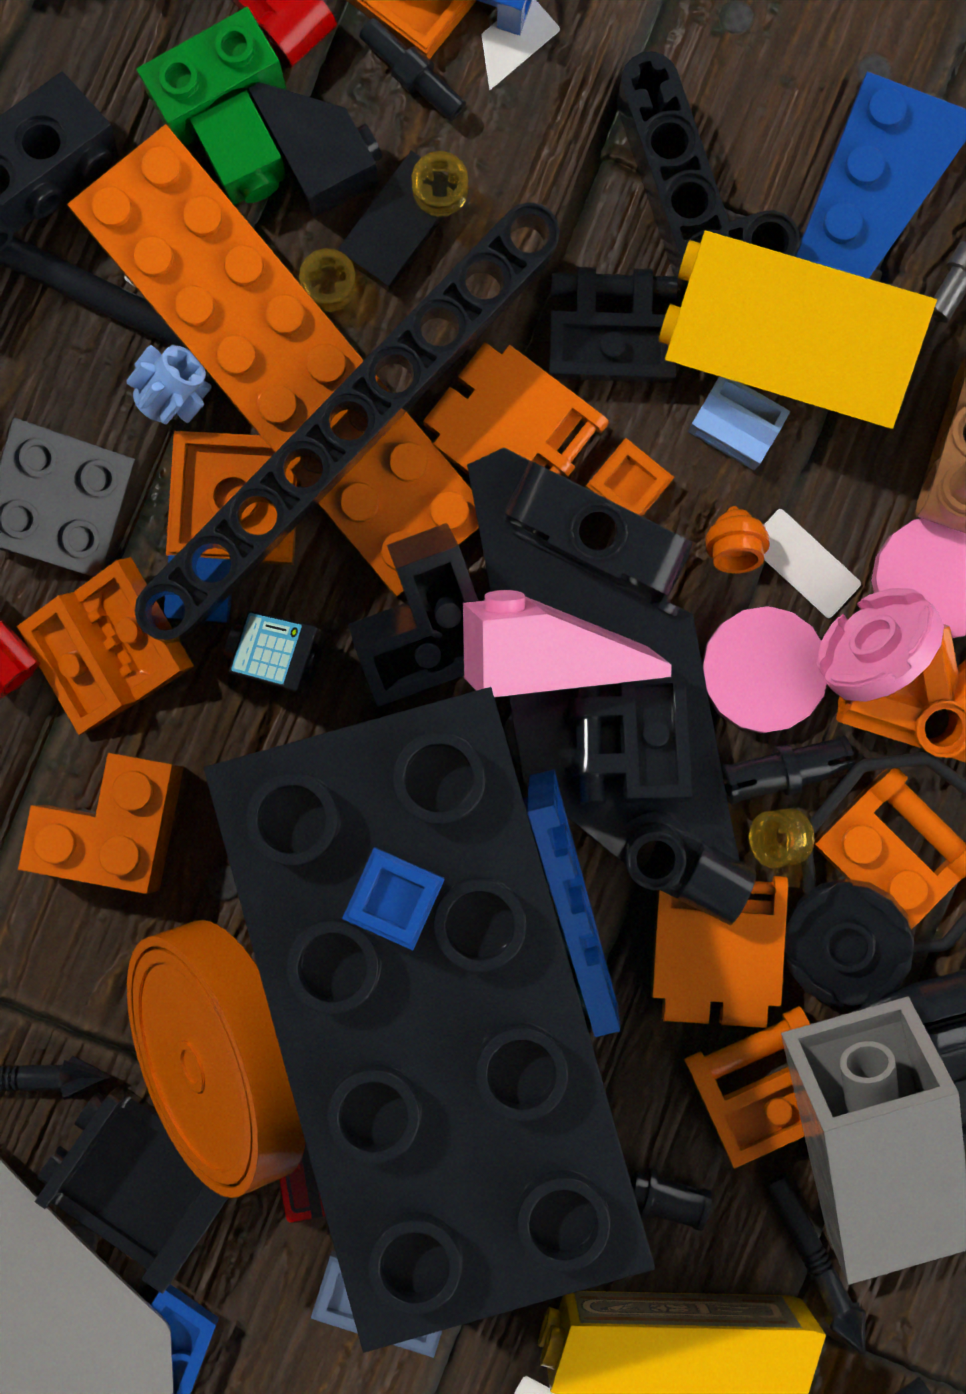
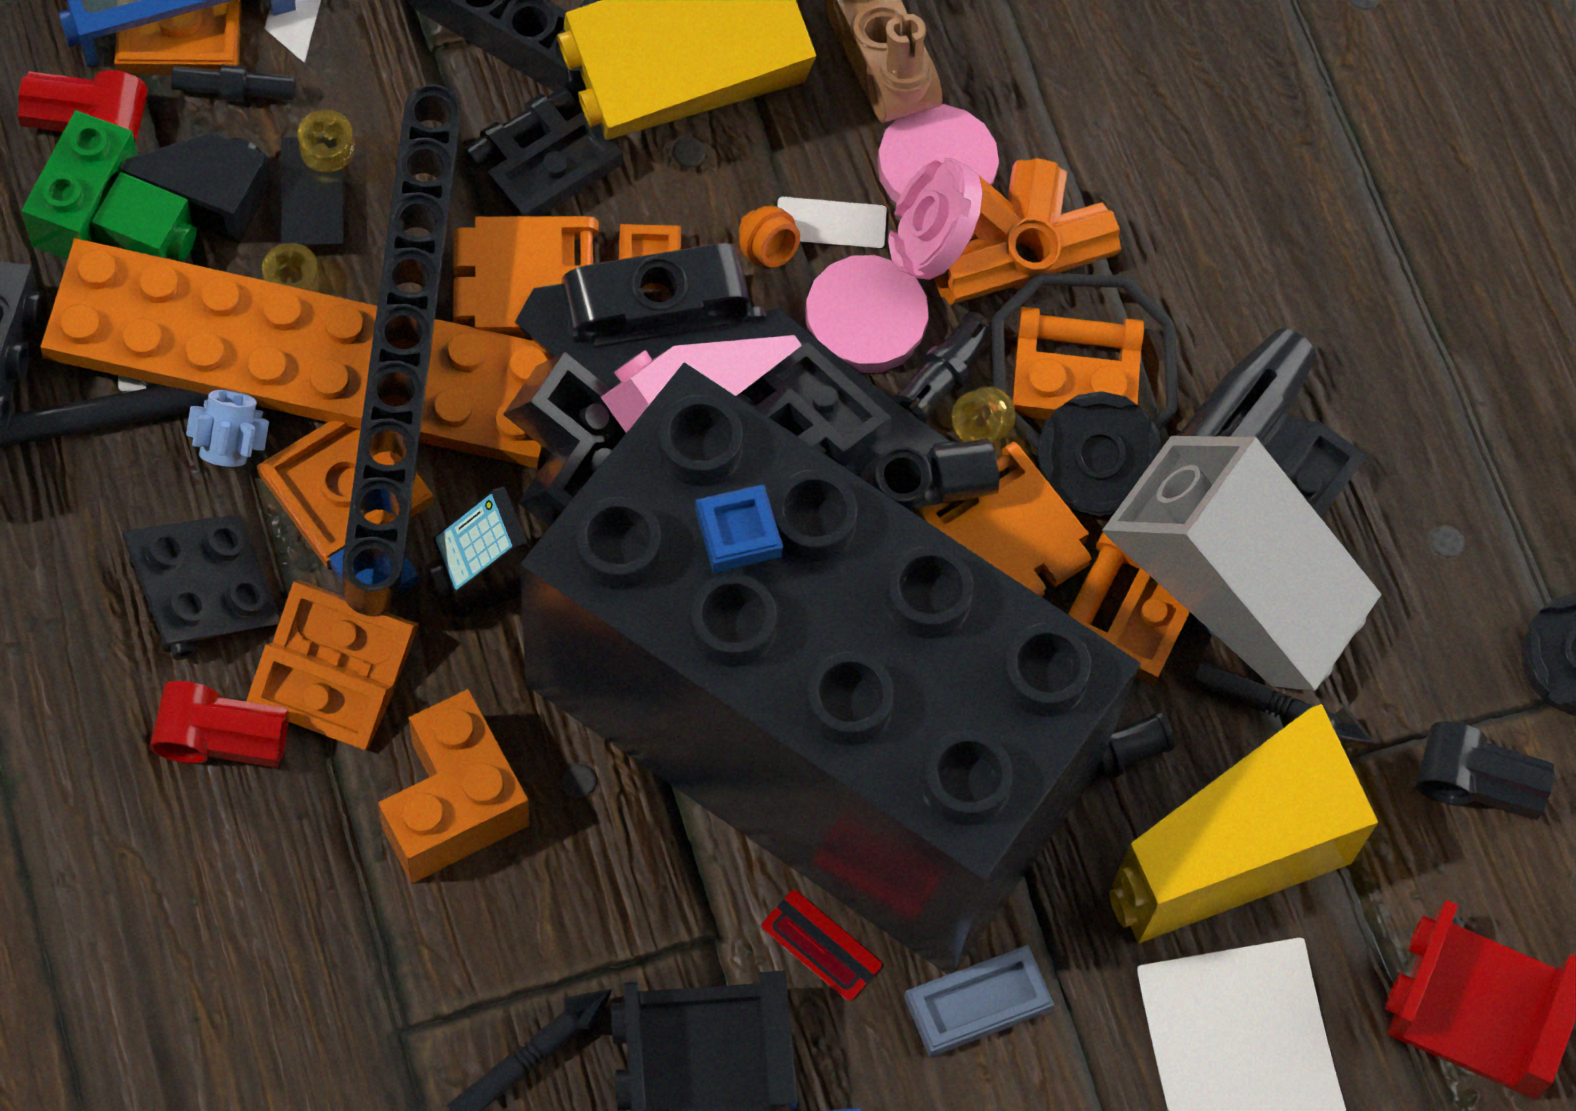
camera: 40 degrees left, 20 degrees down
(213, 1057) = (689, 860): orange brick -> none
(739, 422) = (696, 156): light blue piece -> none

